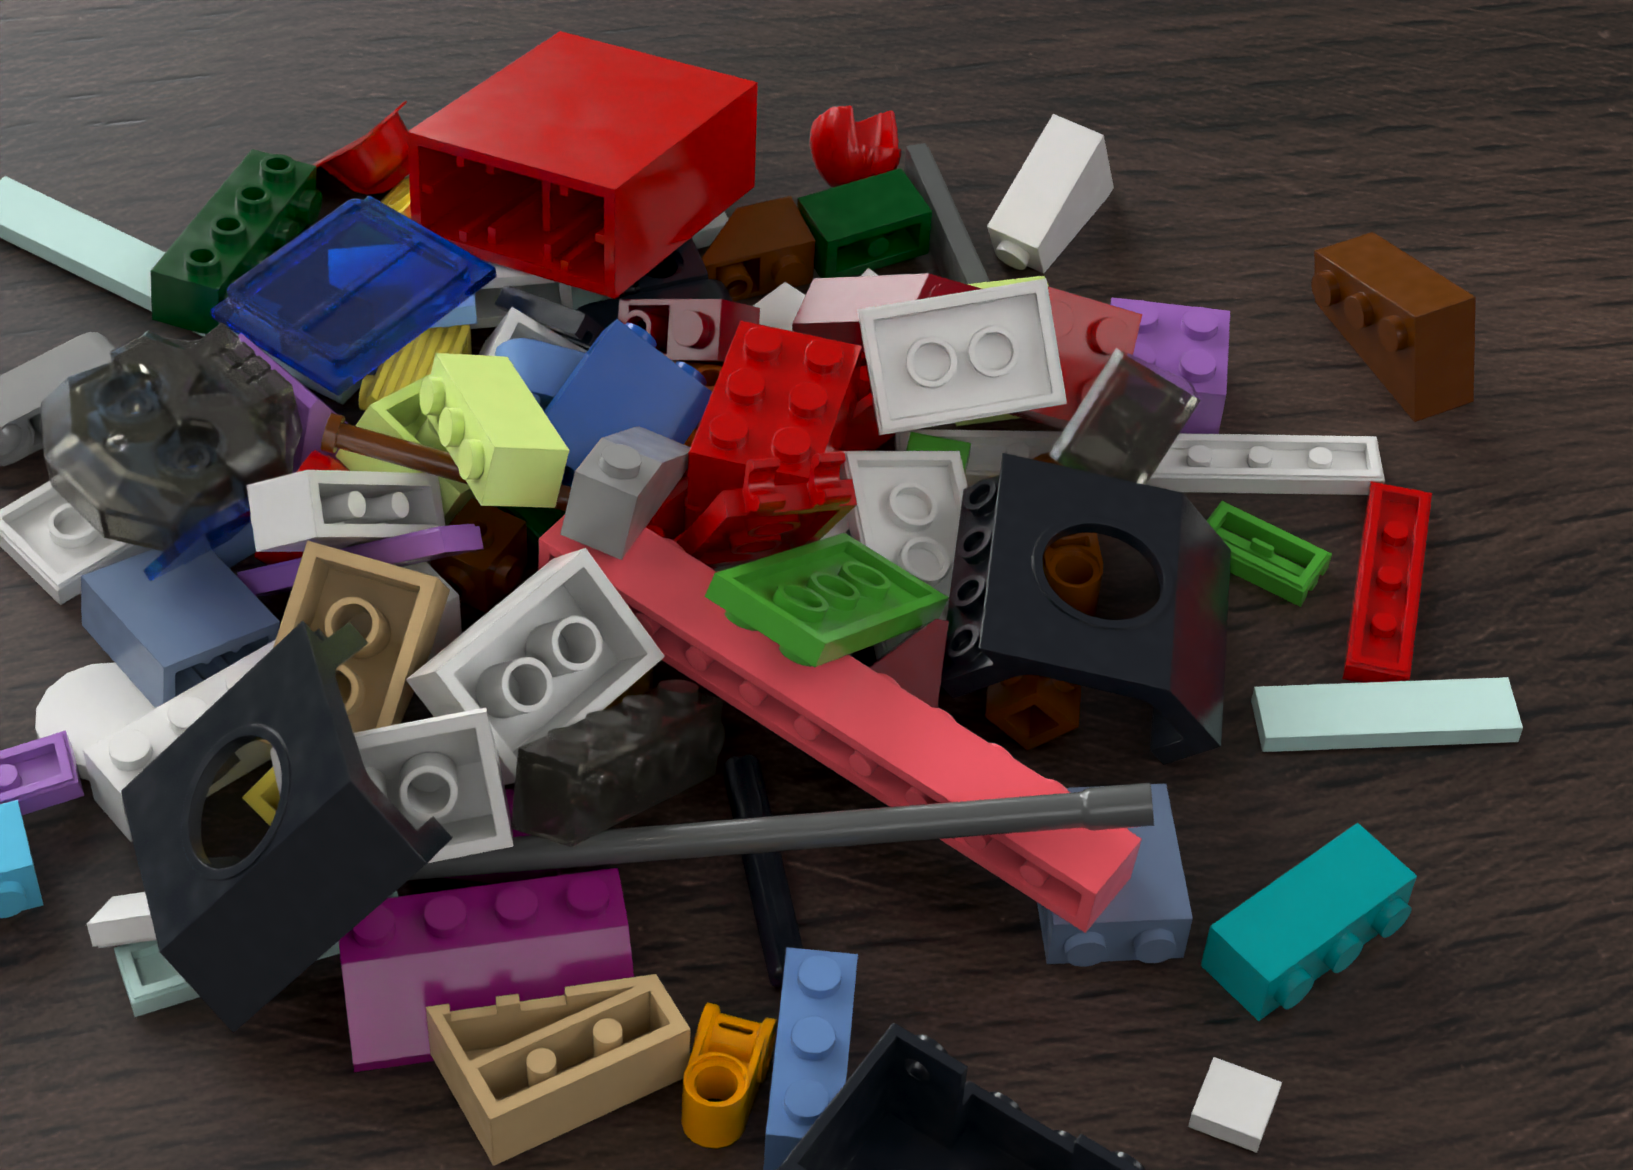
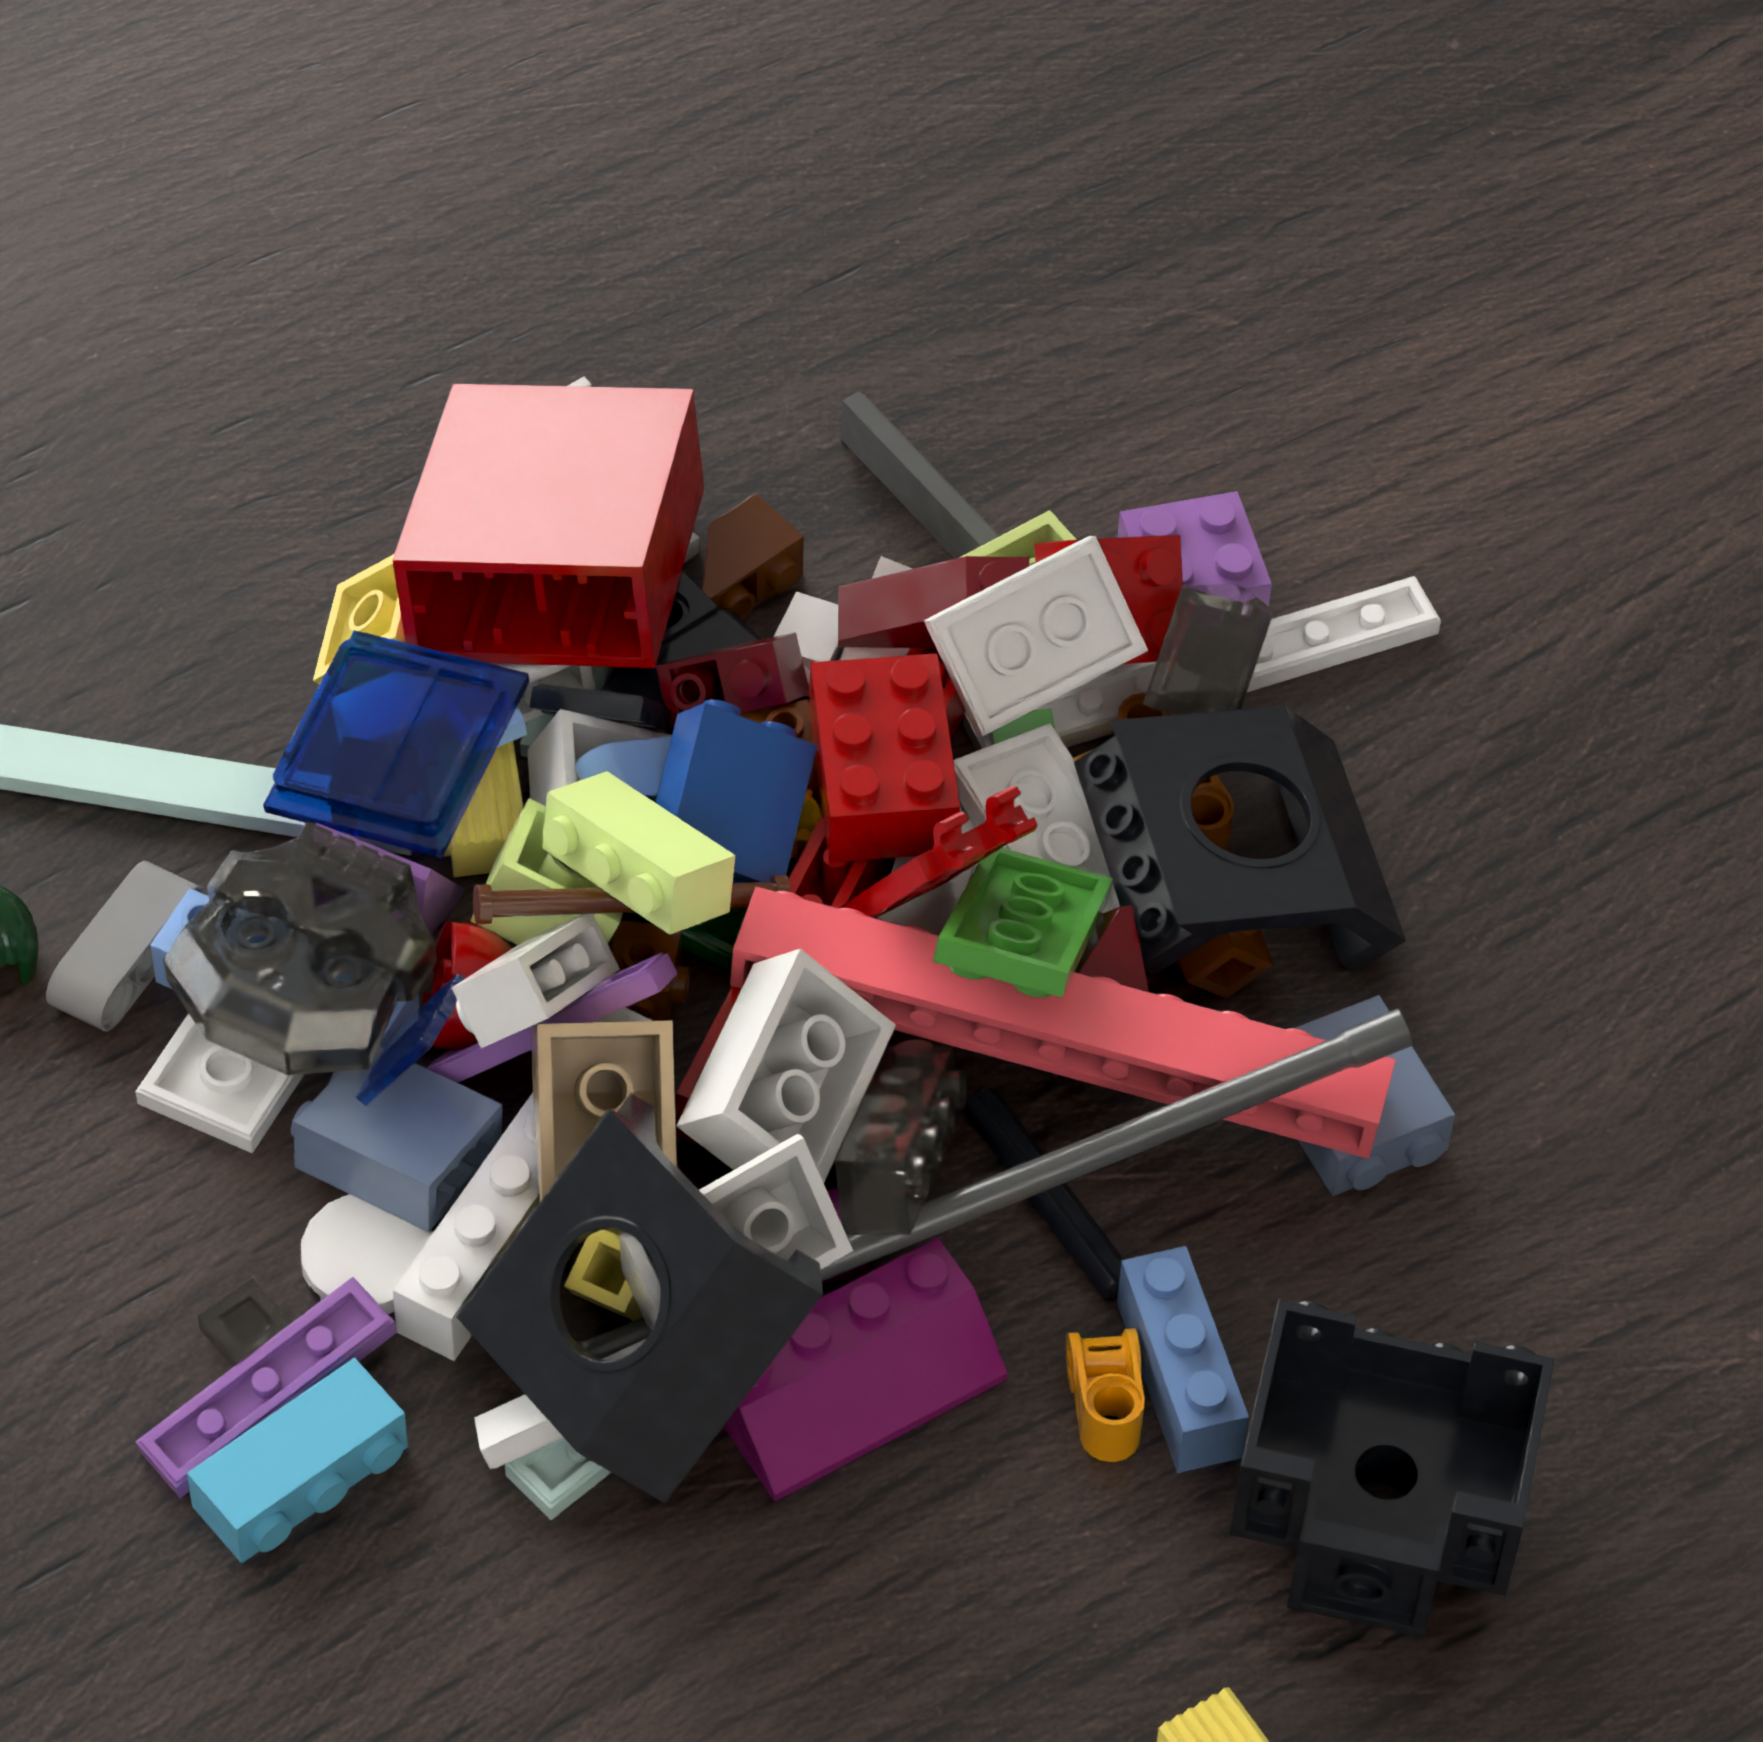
camera: 20 degrees left, 5 degrees up
(243, 224) = (227, 717): dark green brick -> none
(374, 160) = (299, 575): red piece -> none
(557, 1060) = (963, 1431): tan wedge -> none
(622, 488) = (795, 874): light grey slope -> none
(852, 149) = (789, 418): red hair -> none
(866, 224) = (840, 498): dark green brick -> none
(1051, 196) = (1005, 413): white slope -> none
(1235, 1104) = (1549, 1268): white tile -> none
(1256, 559) = (1355, 739): bright green tile -> none
(1309, 922) = (1550, 1082): teal brick -> none
(1386, 714) = (1532, 858): light aqua tile -> none
(1387, 585) = (1483, 727): red tile -> none
(1401, 322) = (1391, 445): reddish brown wedge -> none

